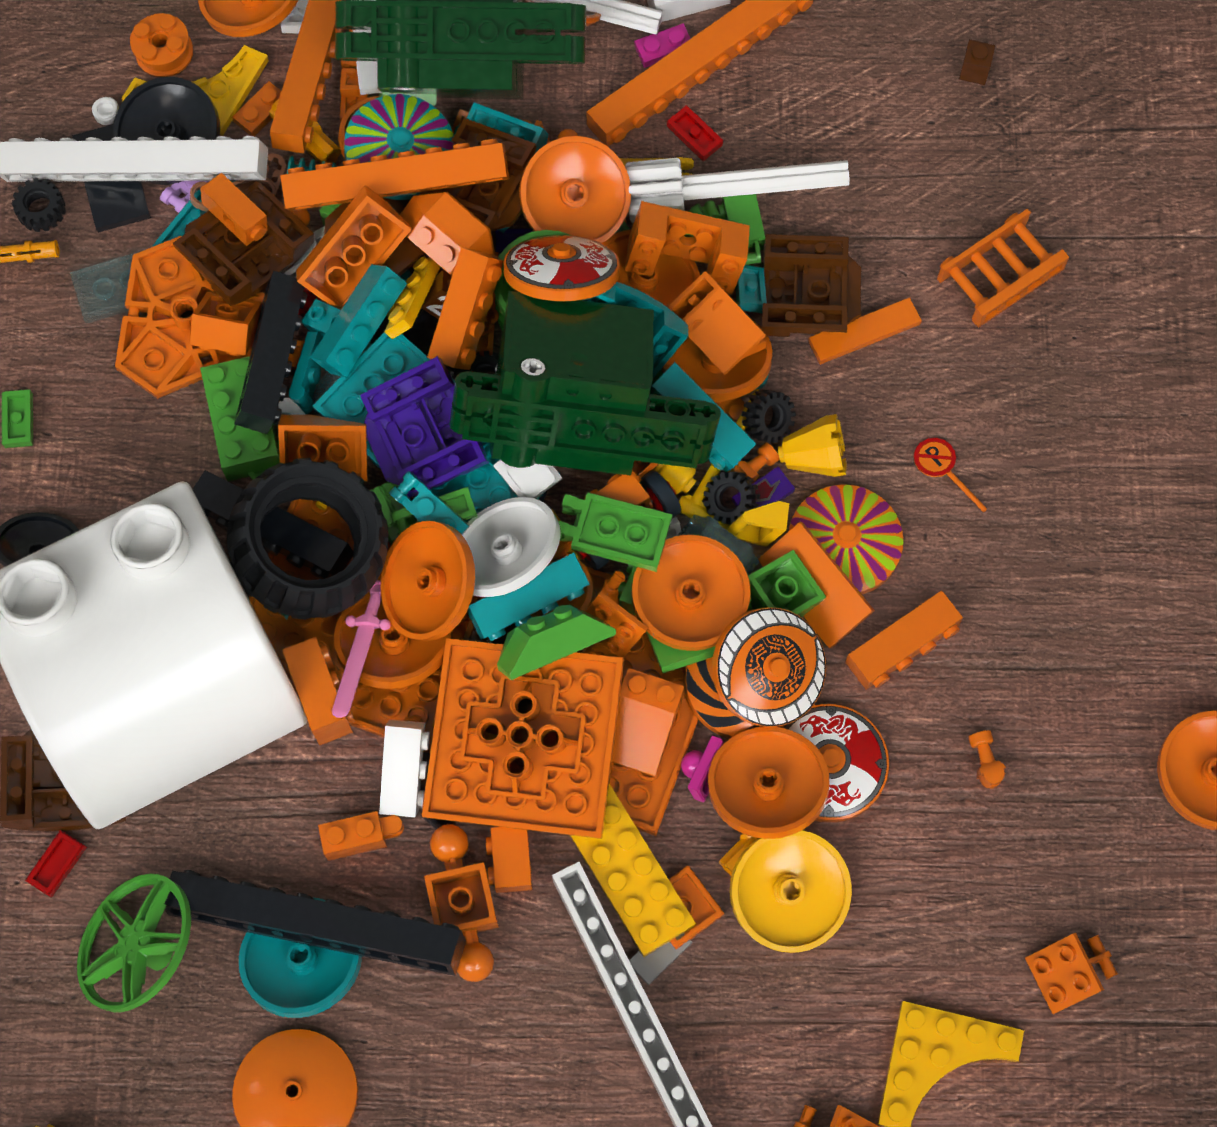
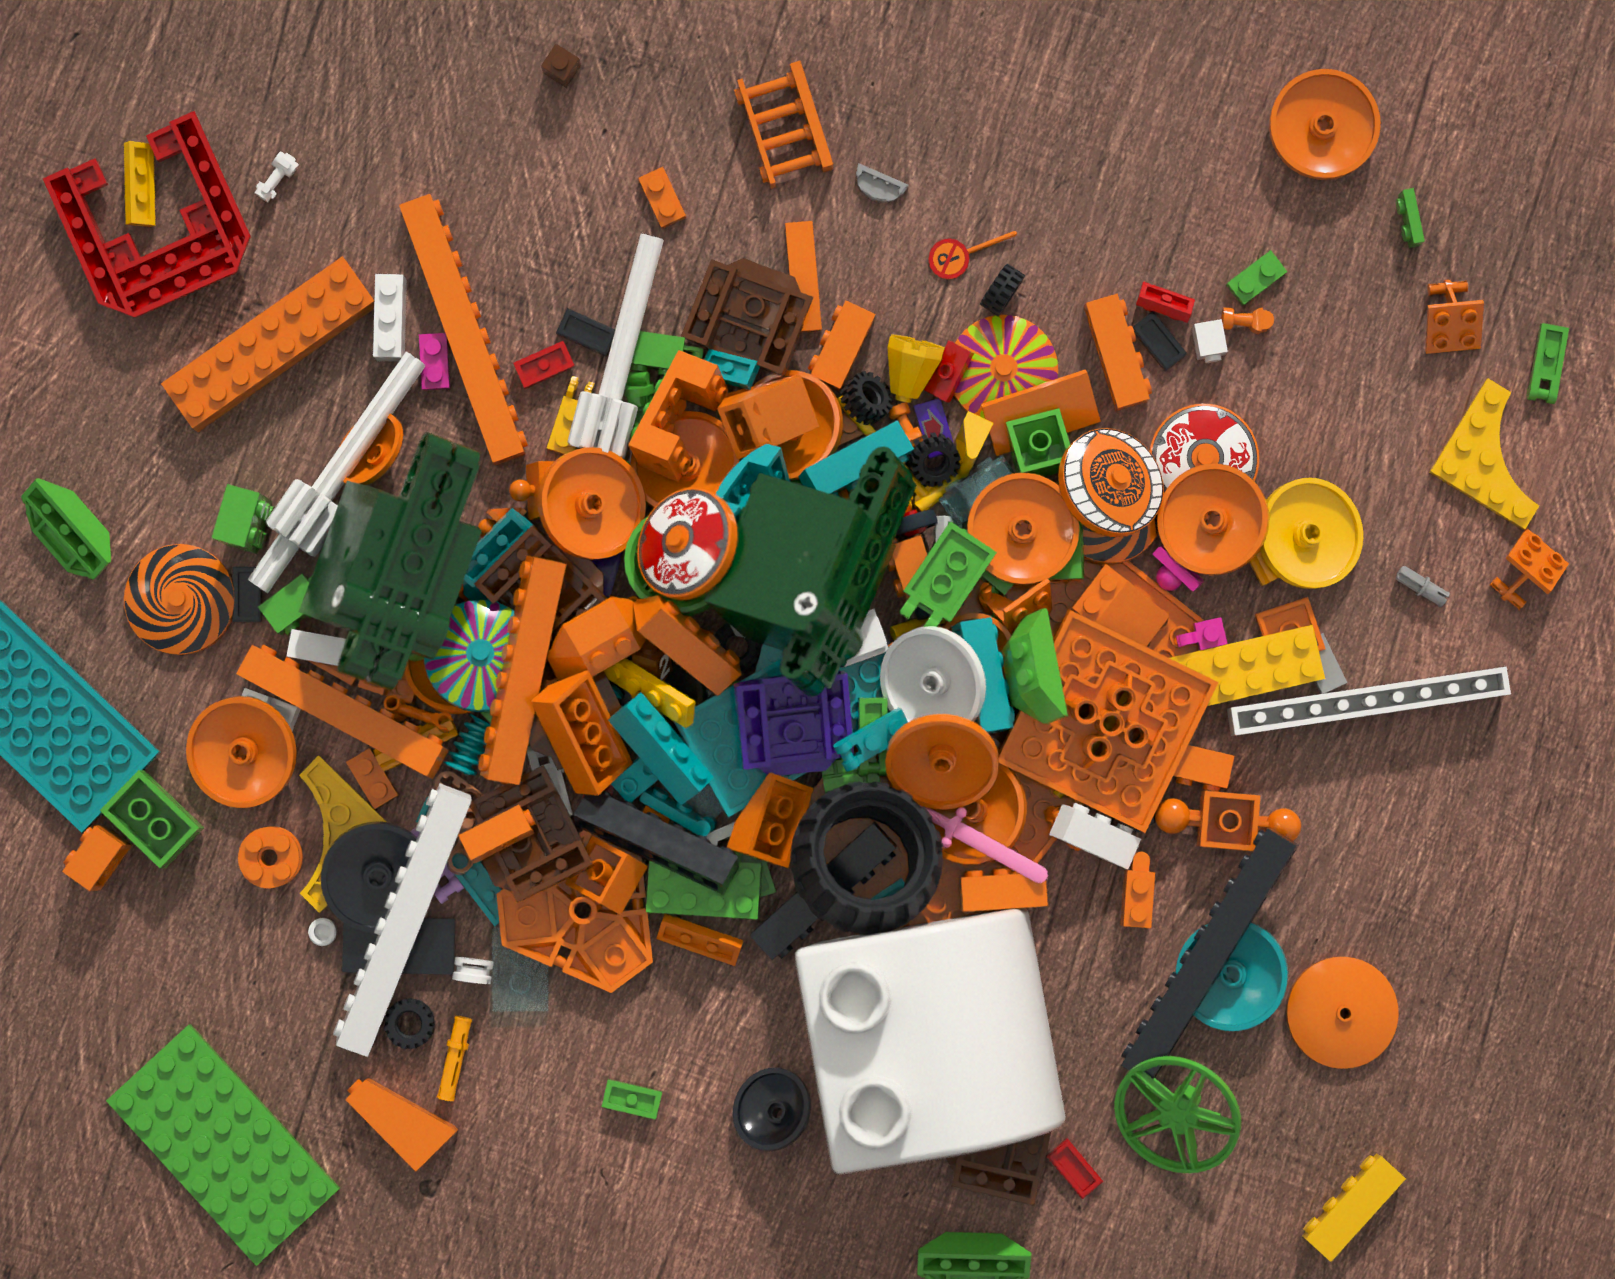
camera: 75 degrees left, 15 degrees up
(103, 240) = (472, 973): none -> white wheel
(190, 431) = (699, 939): none -> orange plate
(330, 110) = (403, 710): none -> orange brick
(648, 819) = (1206, 635): none -> dark pink plate
(739, 153) = (586, 332): none -> black tile
(777, 1031) = (1422, 586): none -> light grey axle
(813, 382) = (841, 344): none -> orange brick
(823, 486) = (949, 371): none -> red plate
(890, 187) = (662, 197): none -> orange plate
(923, 508) = (1002, 289): none -> black tyre
(931, 681) = (1159, 341): none -> black tile
(951, 727) = (1209, 341): none -> white brick
(973, 672) = (1165, 302): none -> red plate
(979, 372) = (878, 185): none -> light grey tile
(1034, 757) = (1256, 278): none -> bright green plate
(1066, 1090) = (1548, 362): none -> bright green plate
(1168, 885) = (1412, 228): none -> bright green plate

